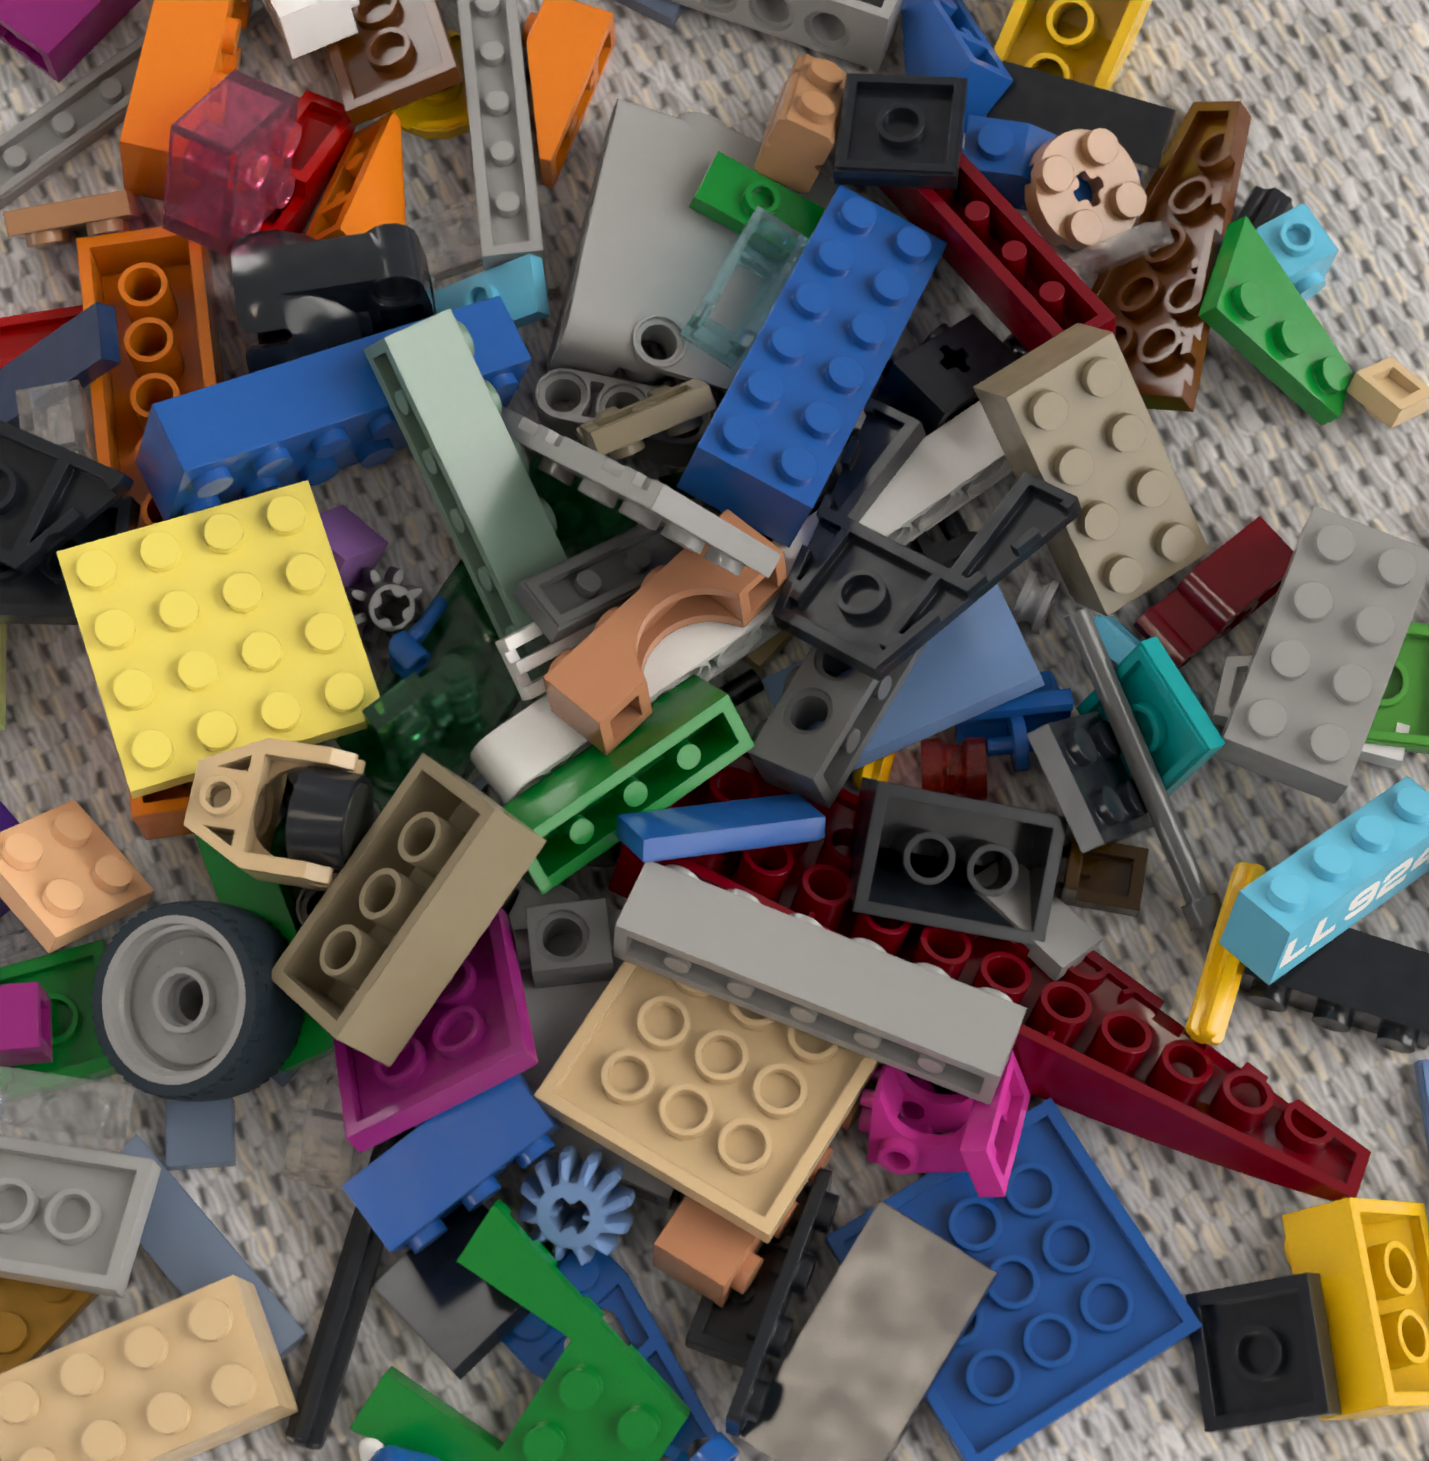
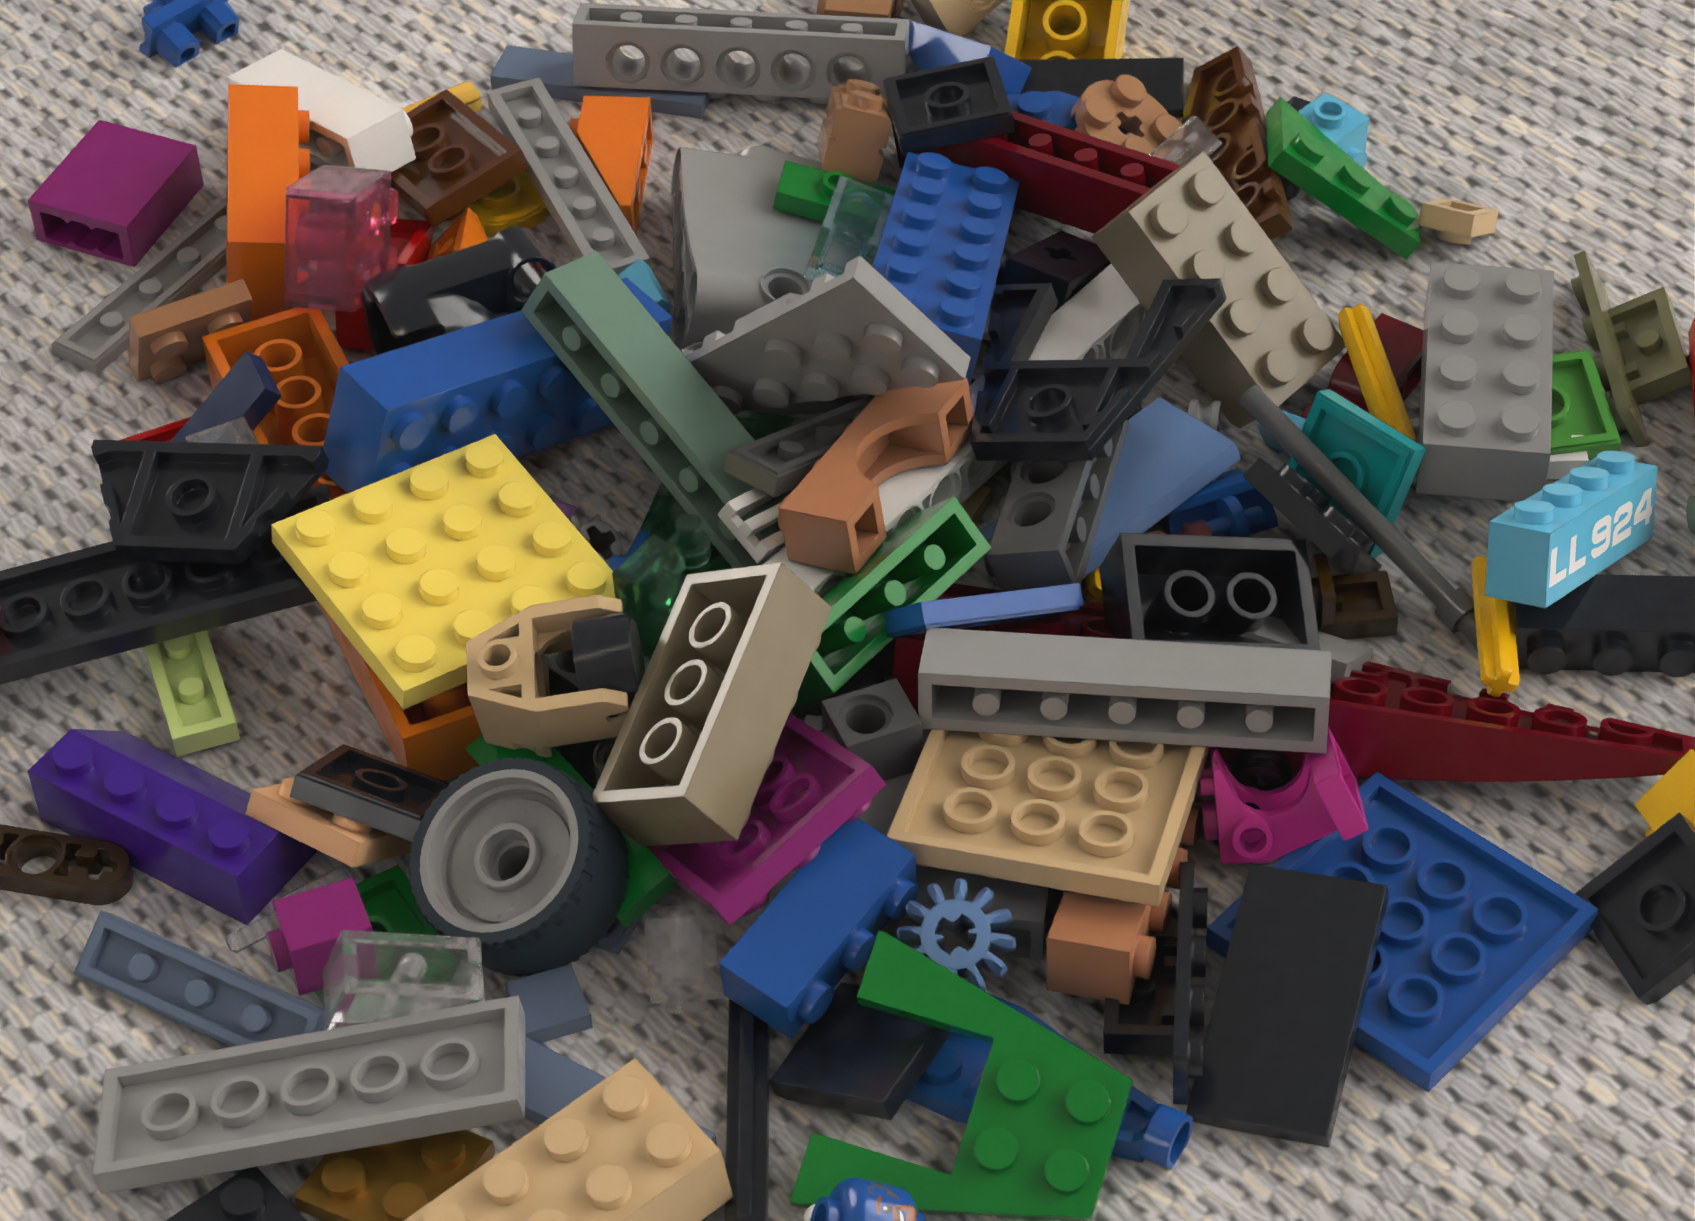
camera: 15 degrees left, 25 degrees down
(93, 868) = (368, 790): none -> black tile
(1218, 614) = (1373, 369): none -> yellow axle

